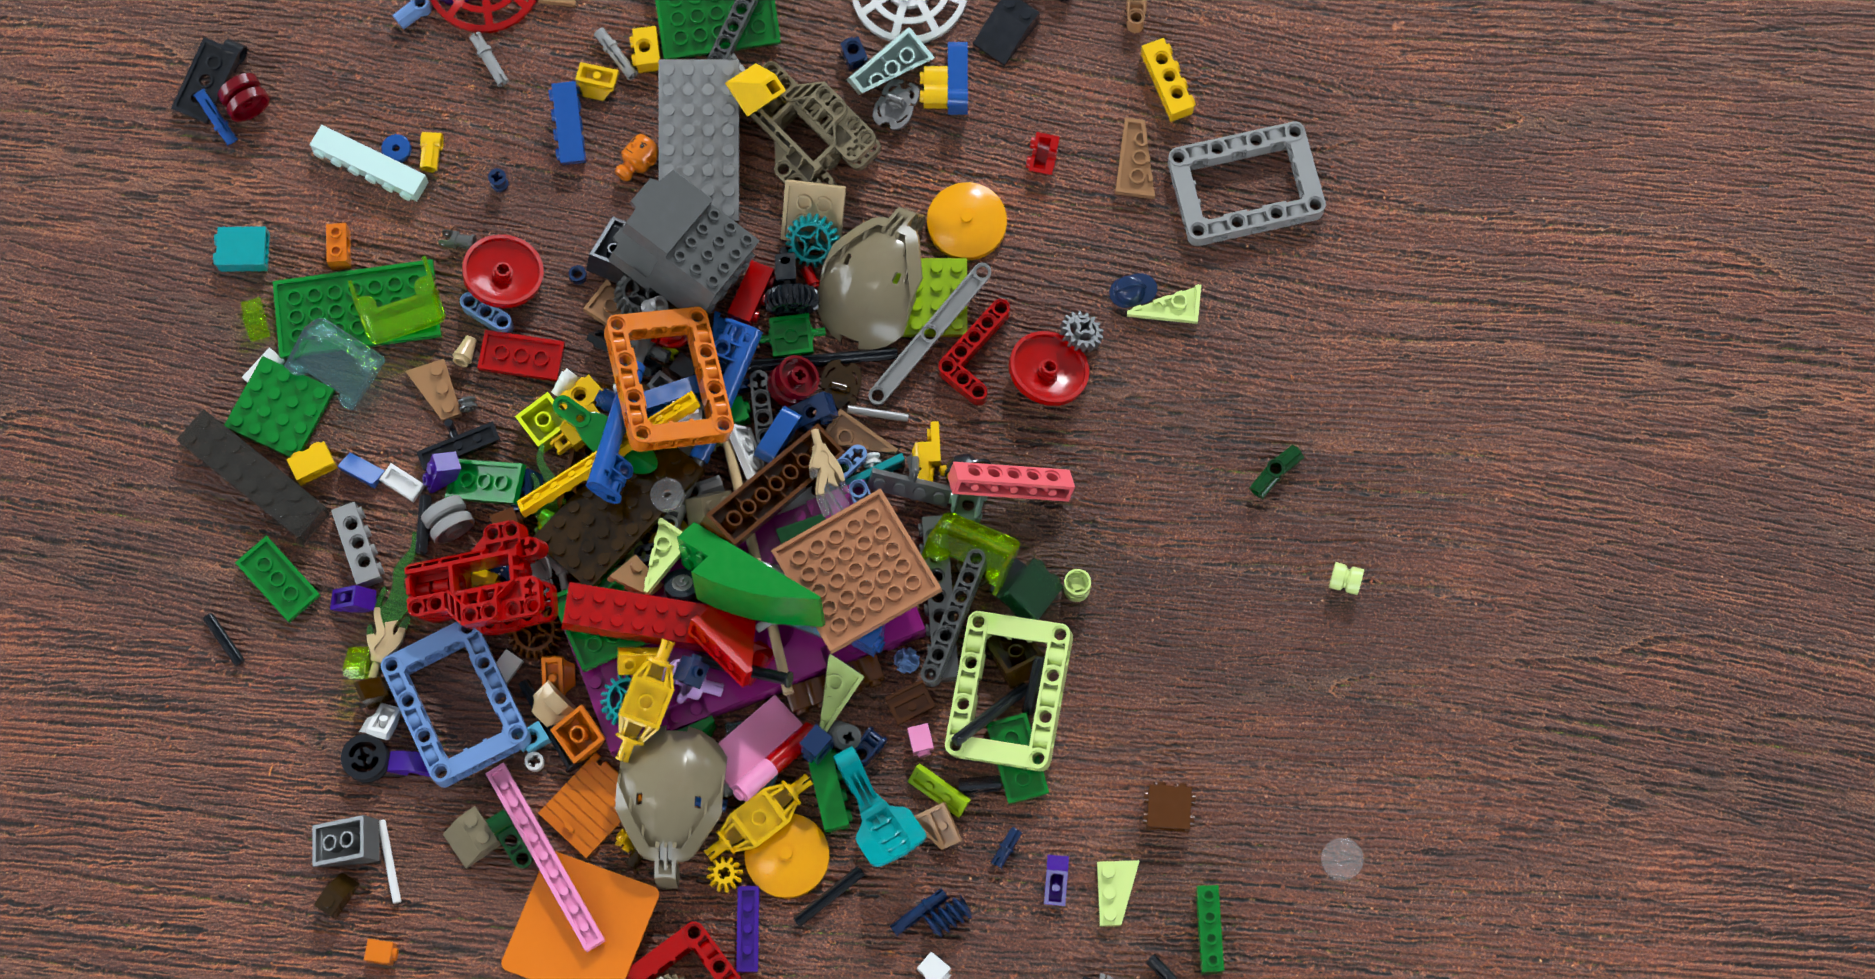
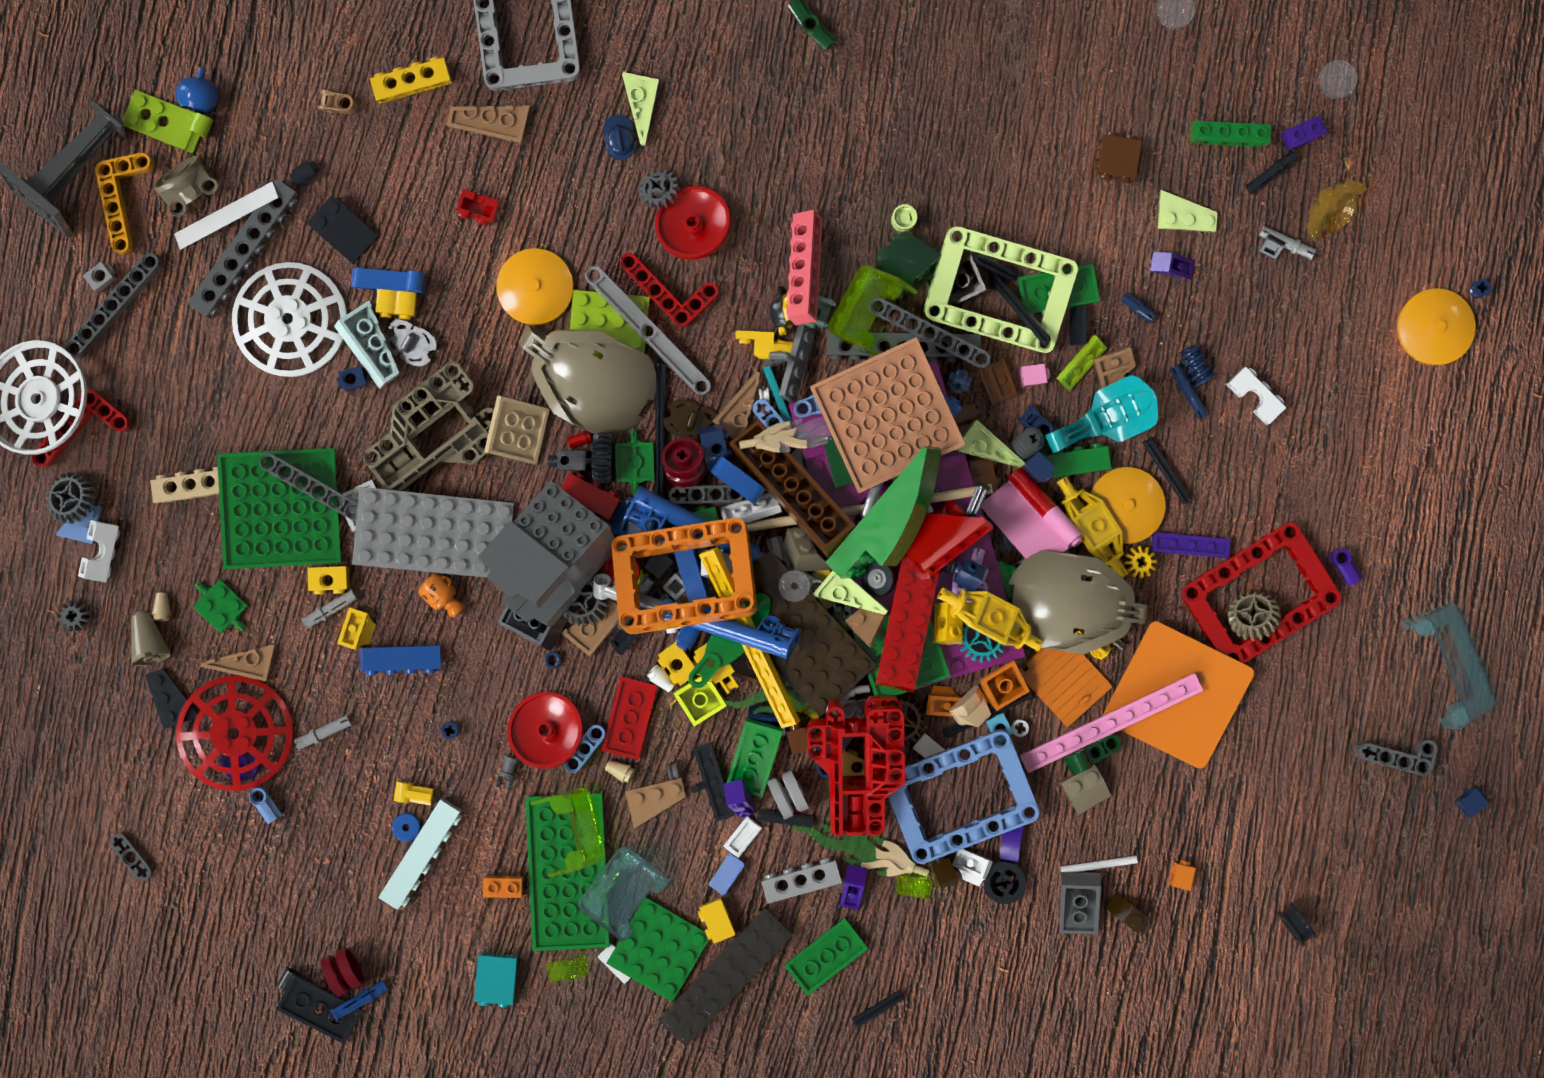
camera: 85 degrees left, 15 degrees up
(755, 88) = (392, 473): yellow slope -> none
(806, 236) = (535, 437): teal gear -> none
(877, 413) = (719, 387): light grey bar -> none

